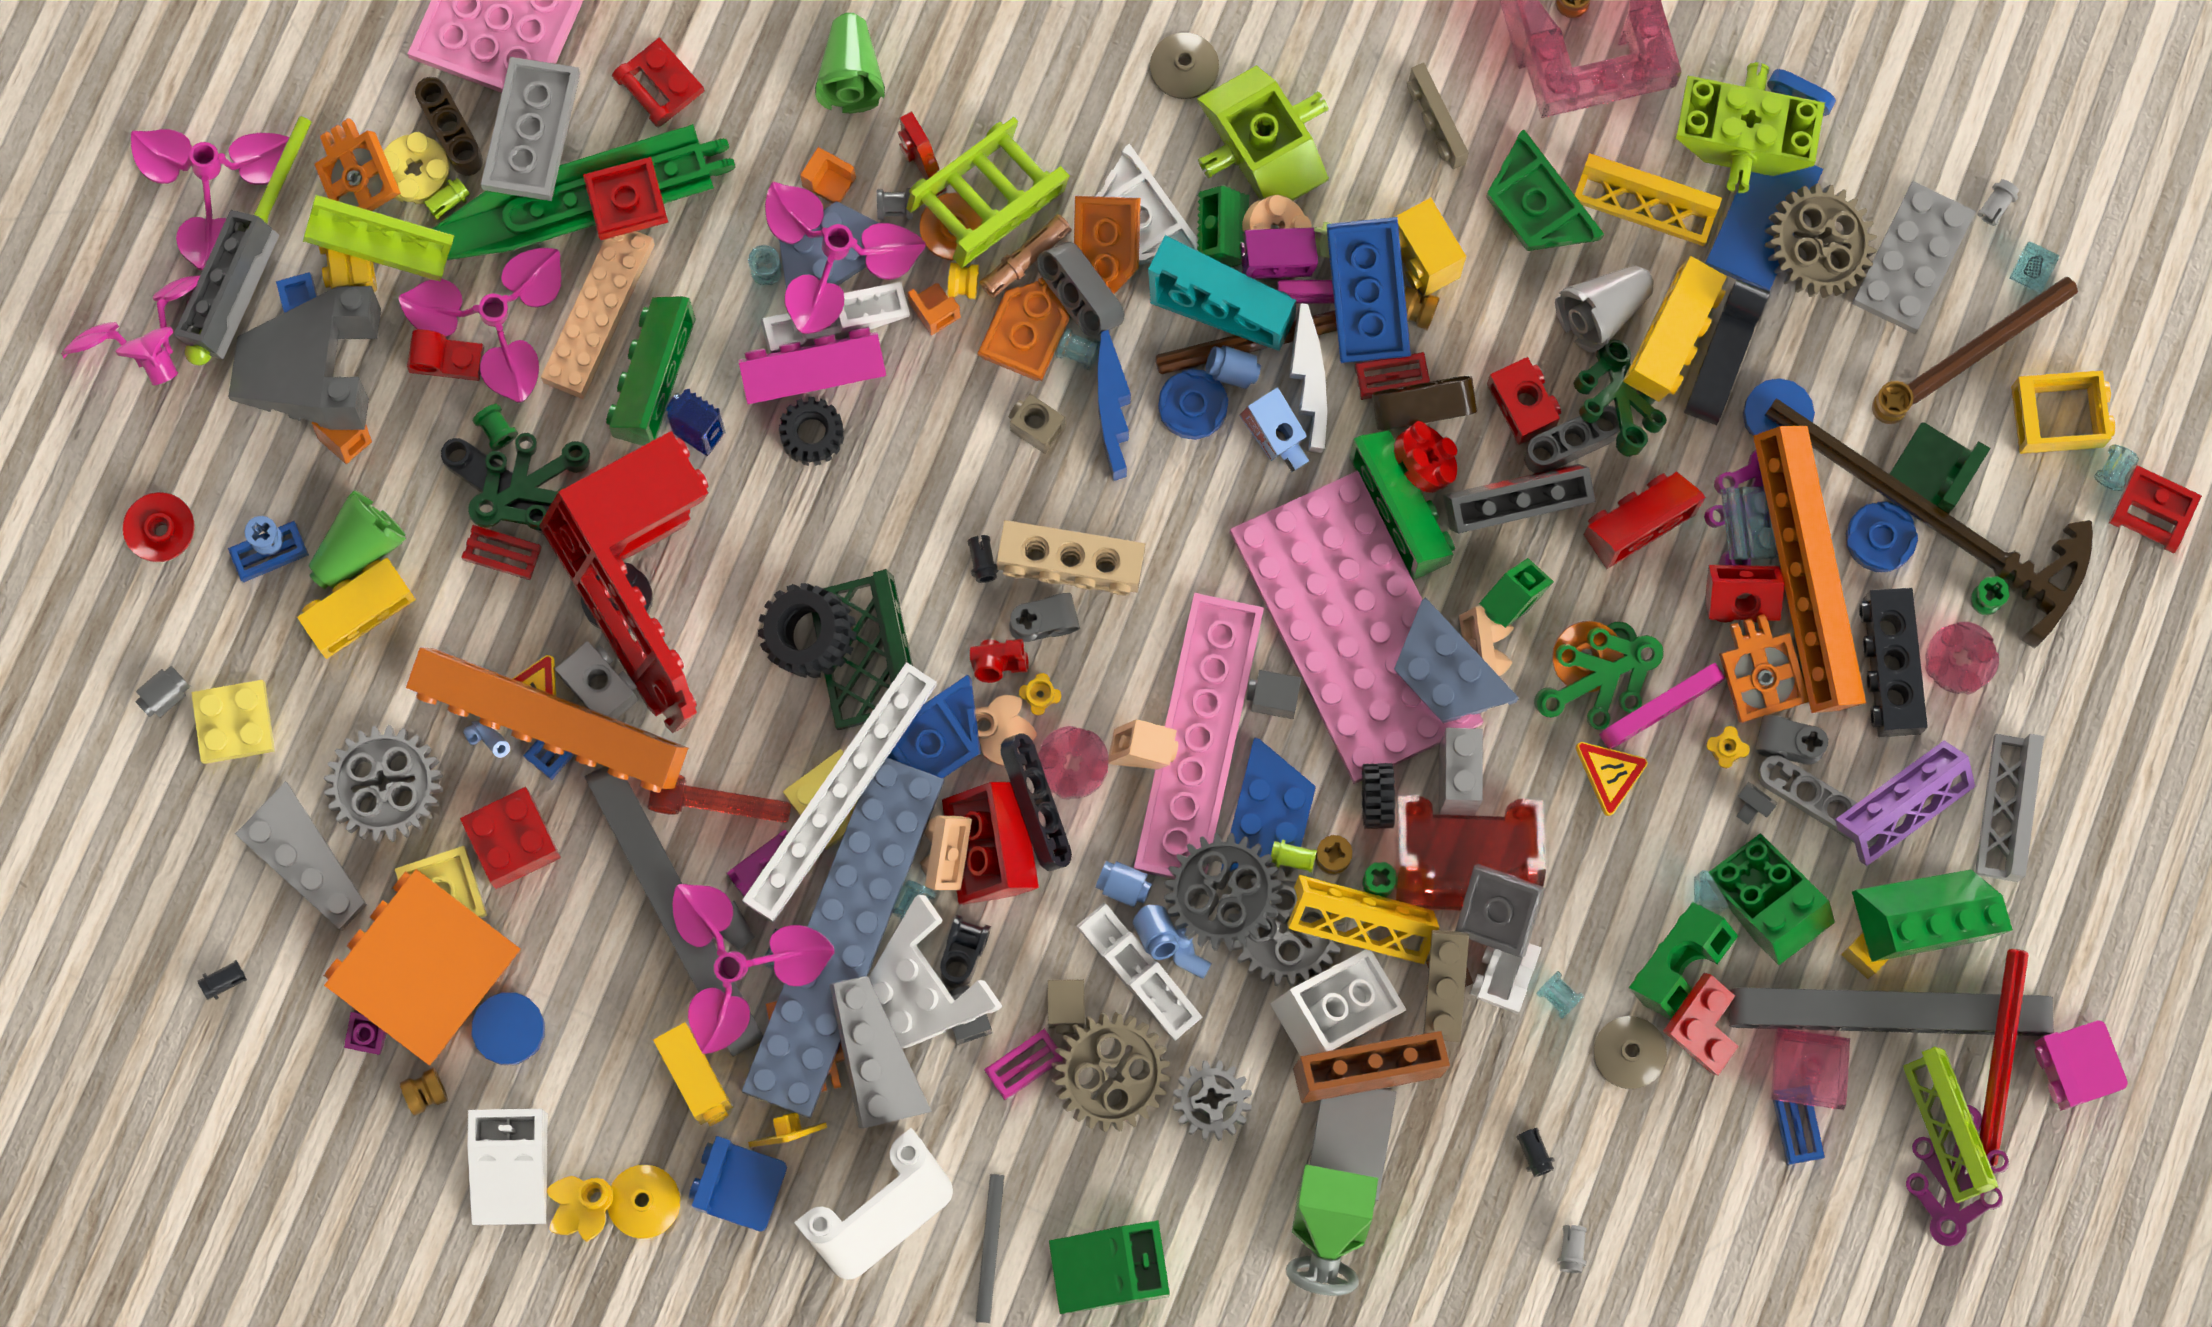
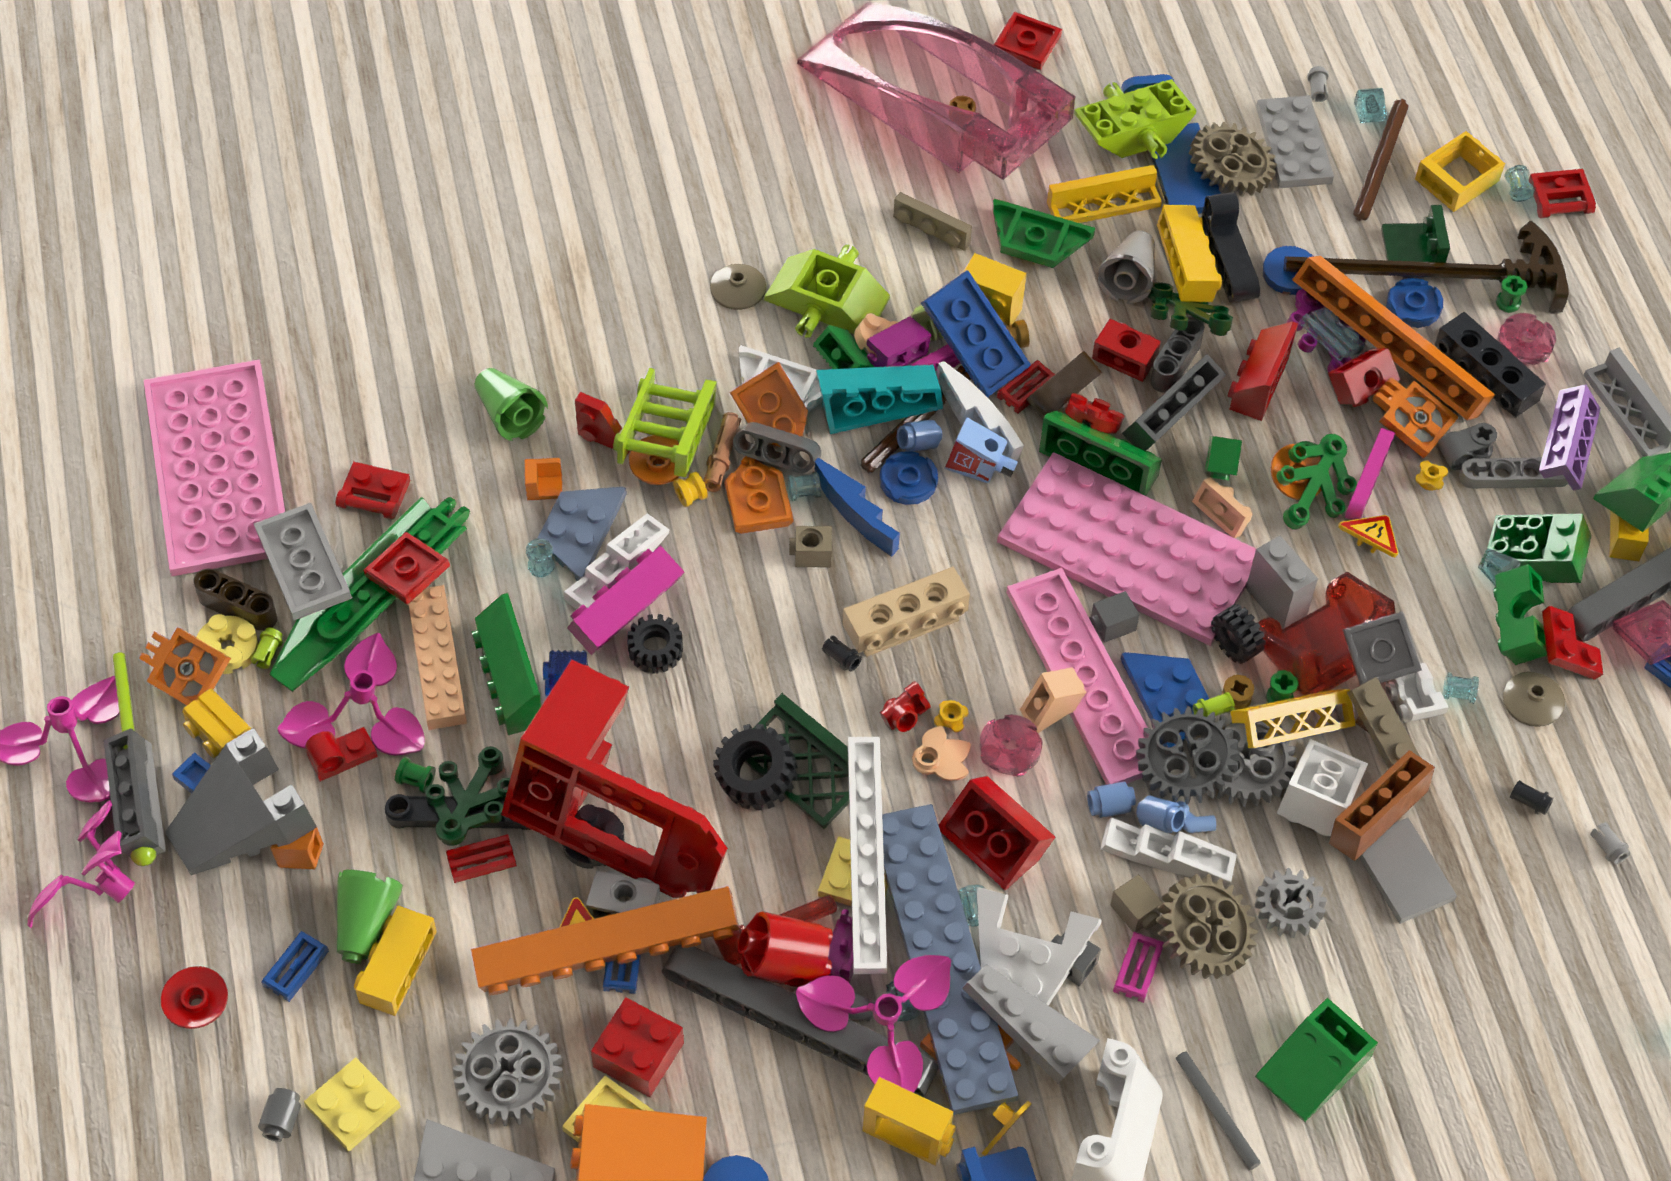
camera: 35 degrees left, 20 degrees down
(259, 544) = (287, 948): medium blue bush -> none
(378, 238) = (235, 695): lime fence -> none
(489, 736) = (566, 990): light blue arm -> none
(697, 837) = (784, 949): none -> red cylinder
(811, 301) = (597, 555): dark pink plant -> none
(893, 204) = (604, 470): dark grey bush -> none
(934, 308) = (683, 520): orange panel -> none
(941, 733) = (906, 774): blue wing -> none
(948, 852) = (967, 843): light nougat tile -> none
(966, 946) = (1033, 912): black piece -> none
(1032, 803) = (1008, 781): black beam -> none
(1049, 618) = (916, 664): dark grey piece -> none
(1331, 1220) = (1439, 917): bright green piece -> none
(1447, 669) = (1219, 528): sand blue wing -> none
(1755, 801) = (1479, 495): dark grey tile -> none
(1896, 396) = (1355, 222): pearl gold wheel -> none

